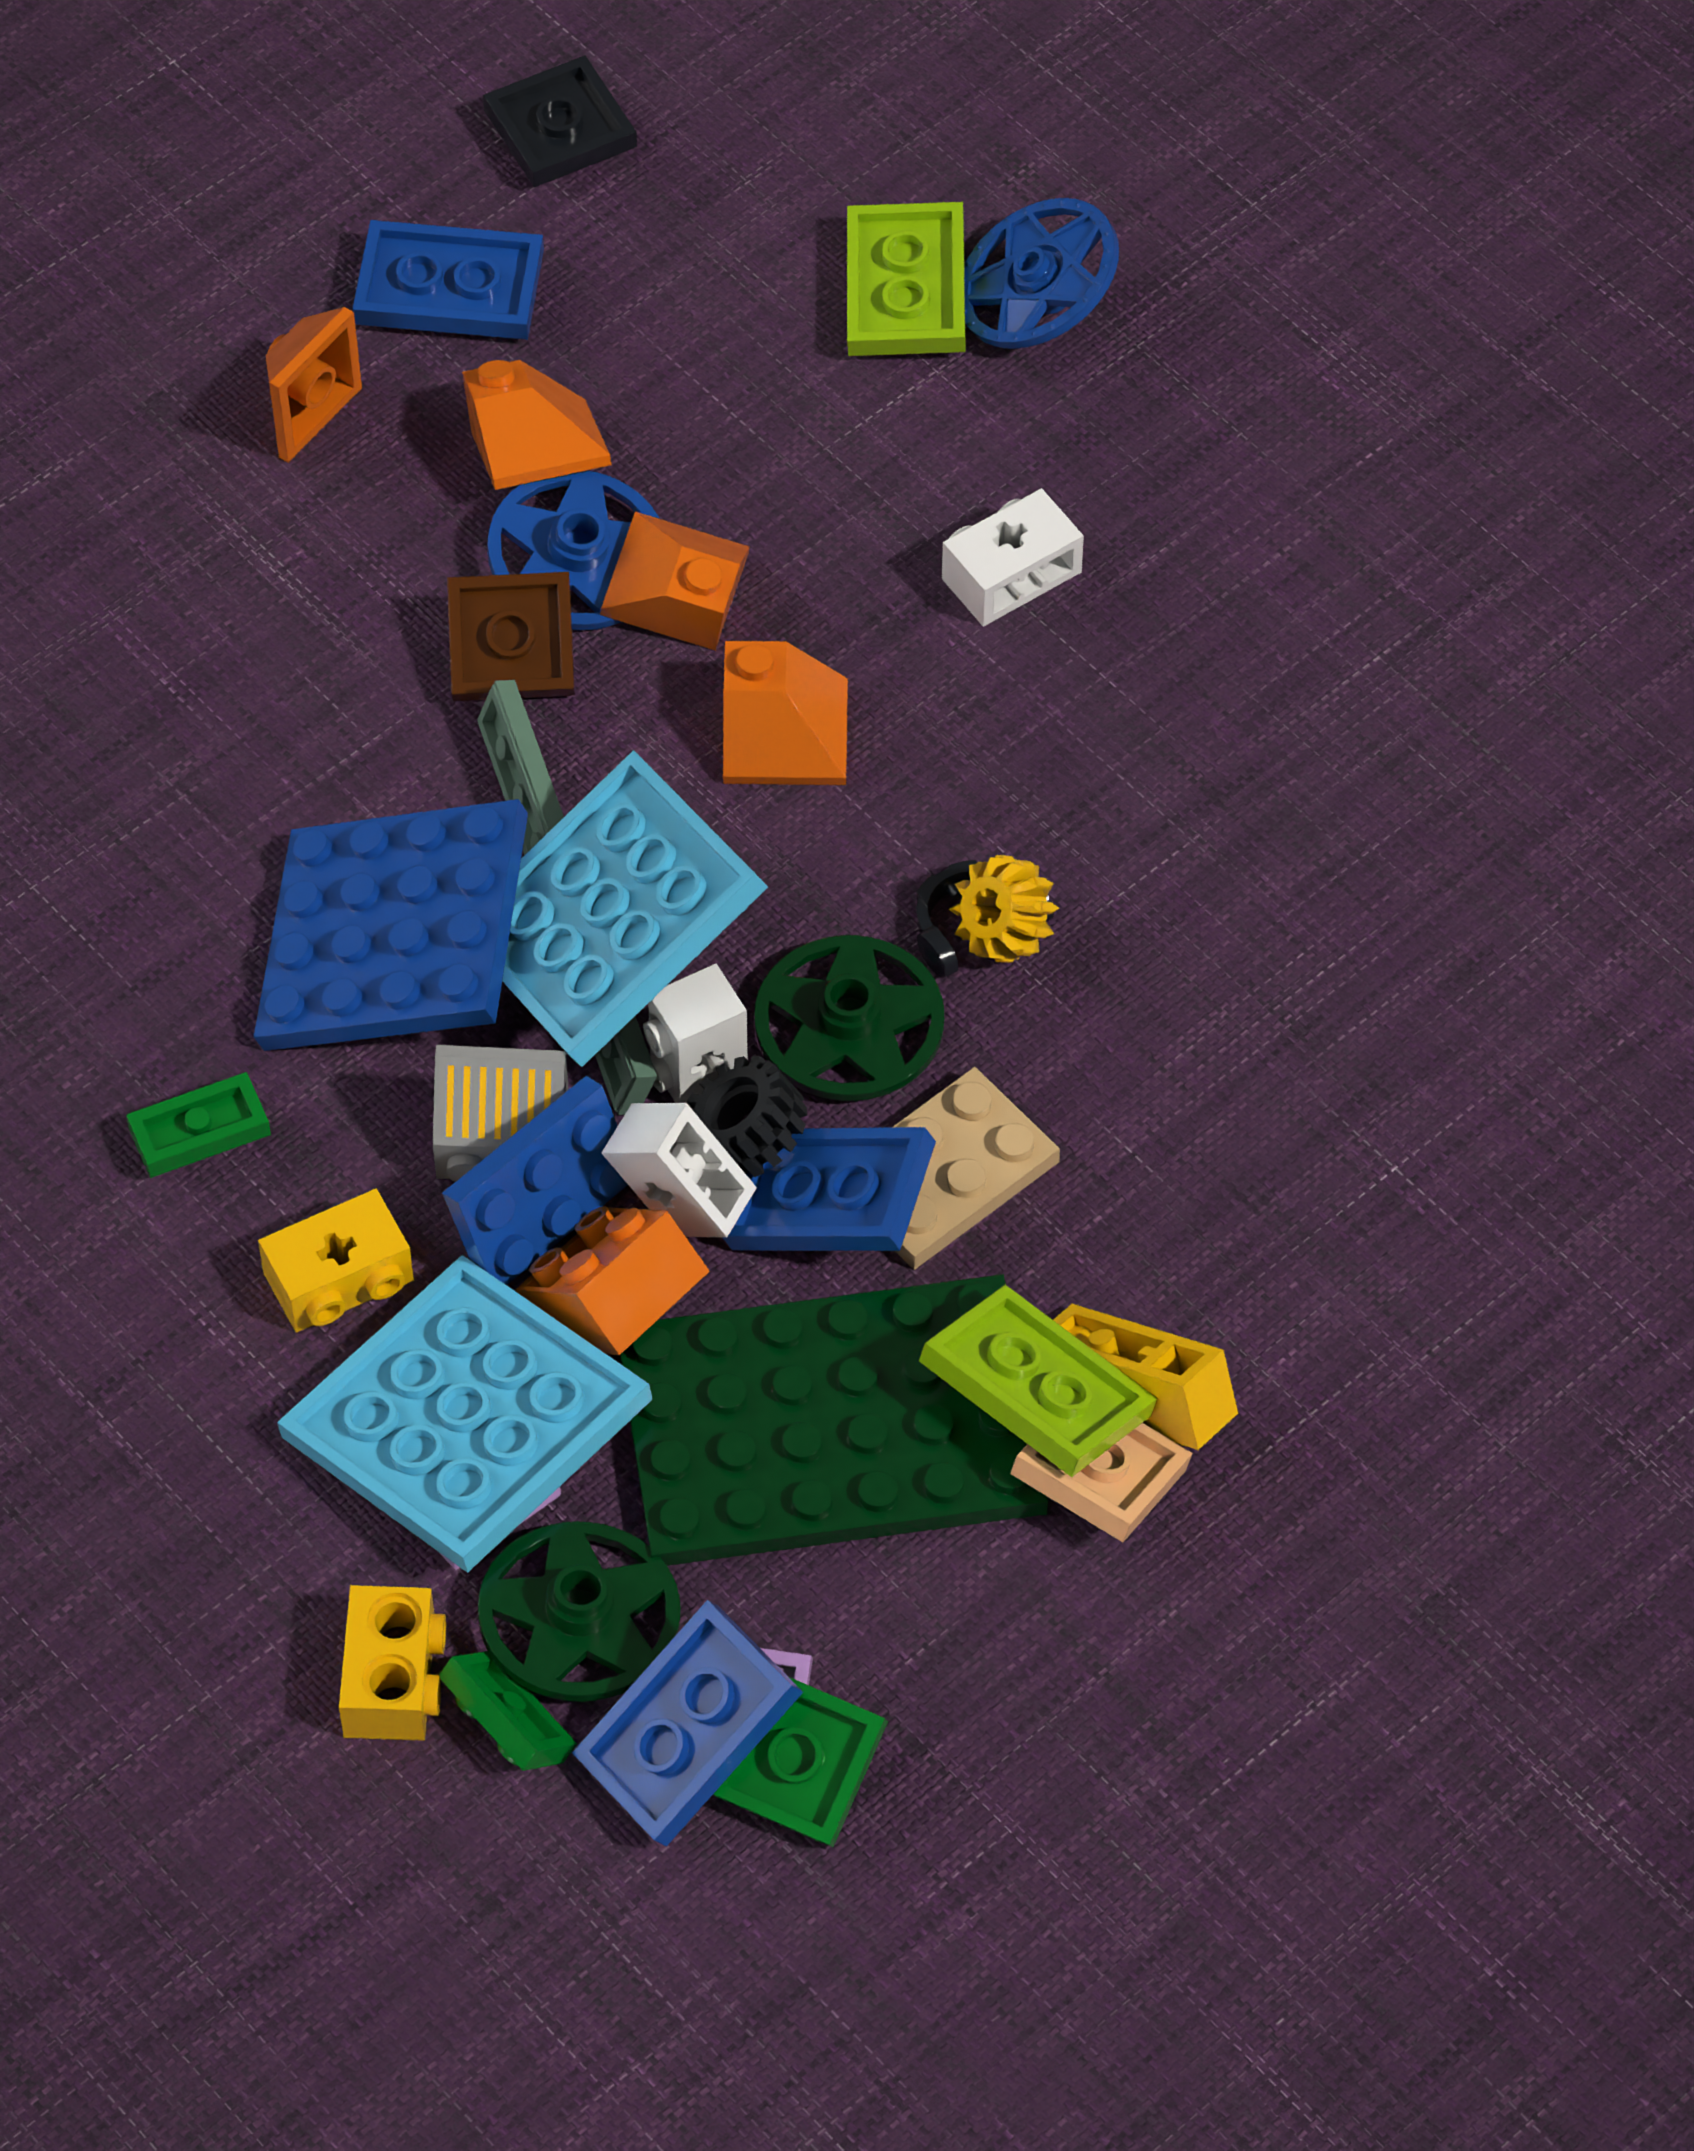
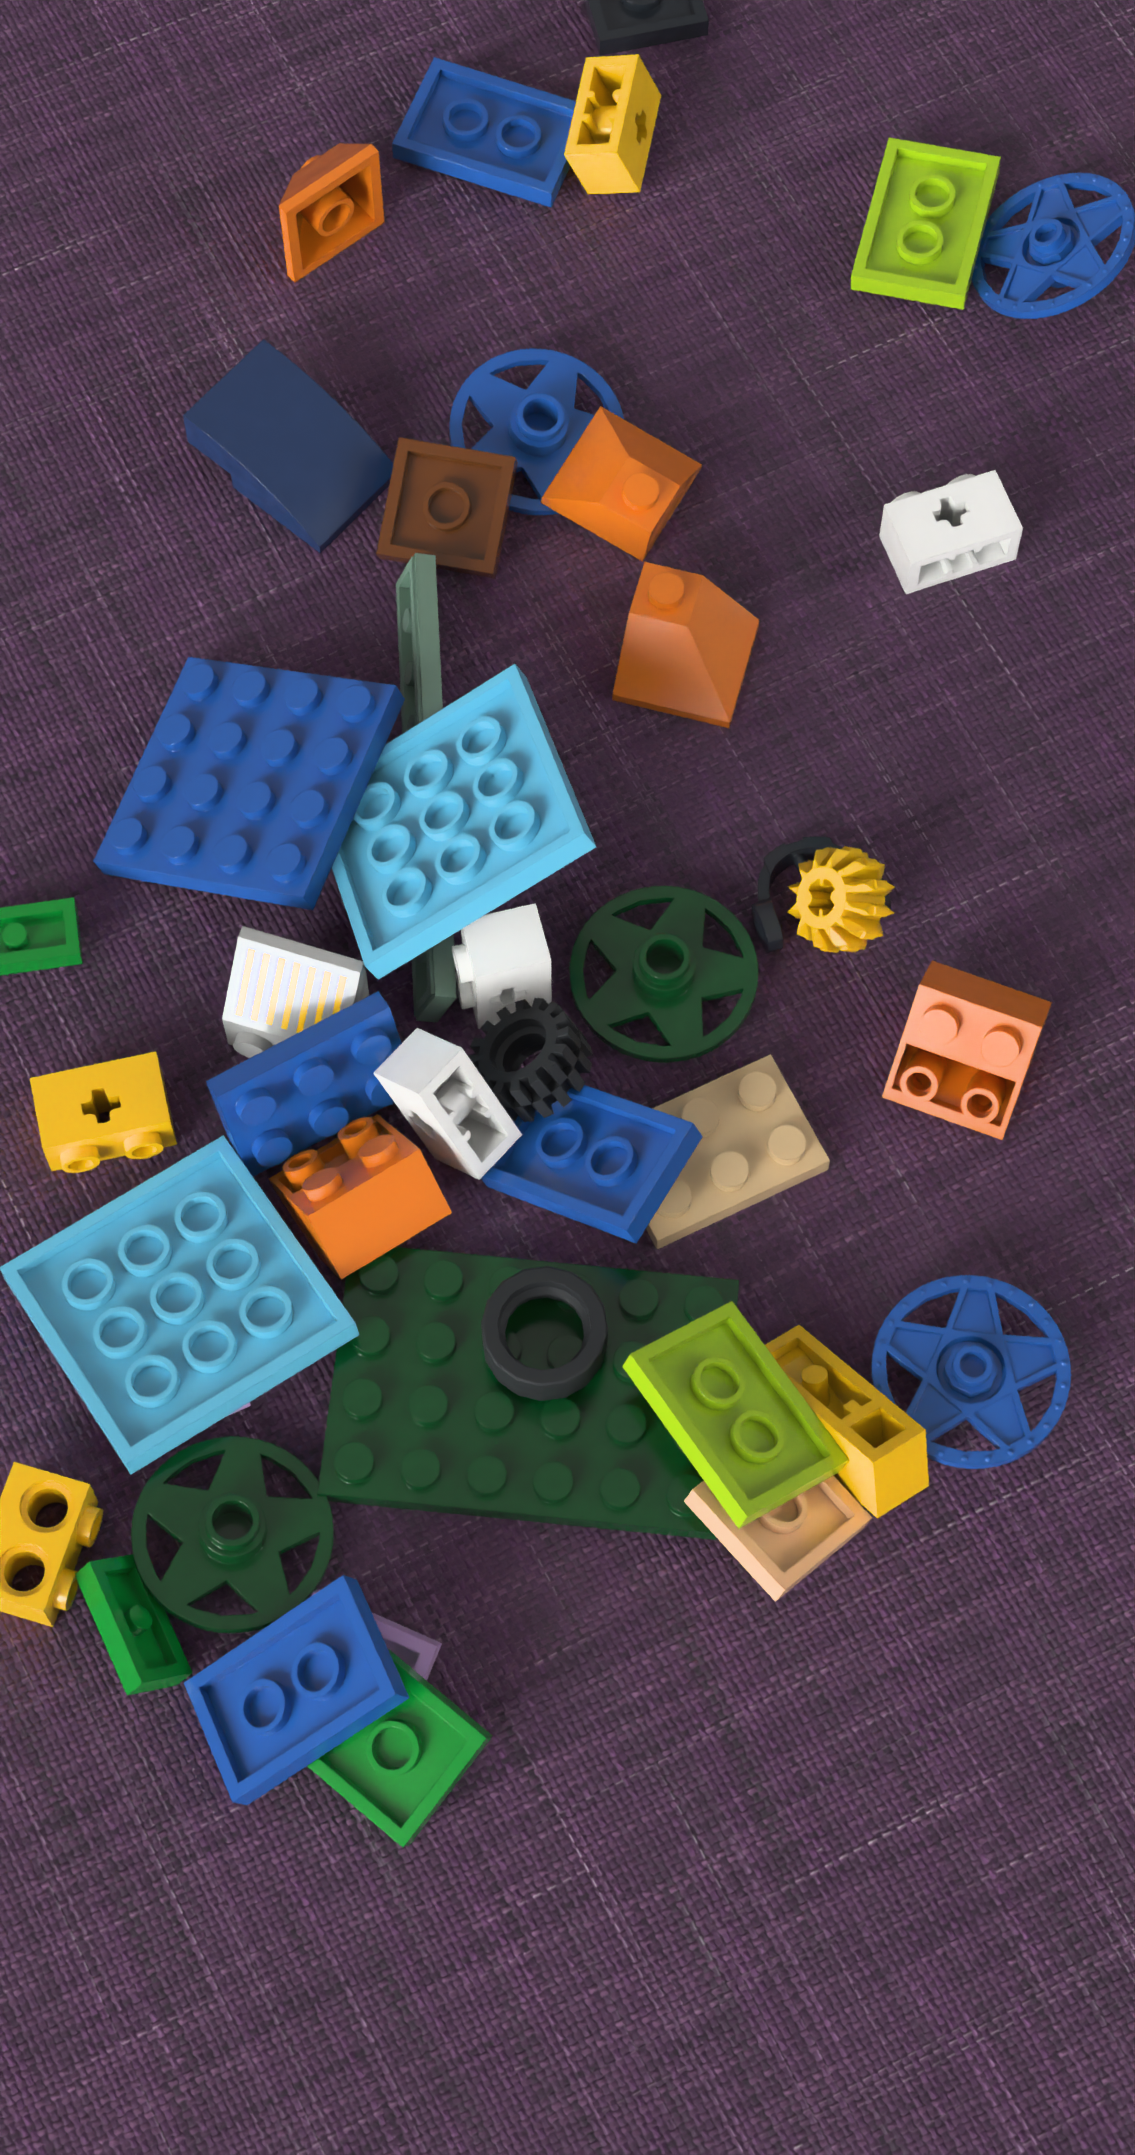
camera: 15 degrees right, 10 degrees up
(334, 613) = (289, 446): none -> dark blue slope
(529, 425) = (526, 297): orange slope -> none
(571, 247) = (612, 124): none -> yellow brick
(833, 1311) = (540, 1284): none -> black tyre
(1162, 1021) = (966, 1049): none -> orange slope
(1253, 1299) = (974, 1368): none -> blue wheel

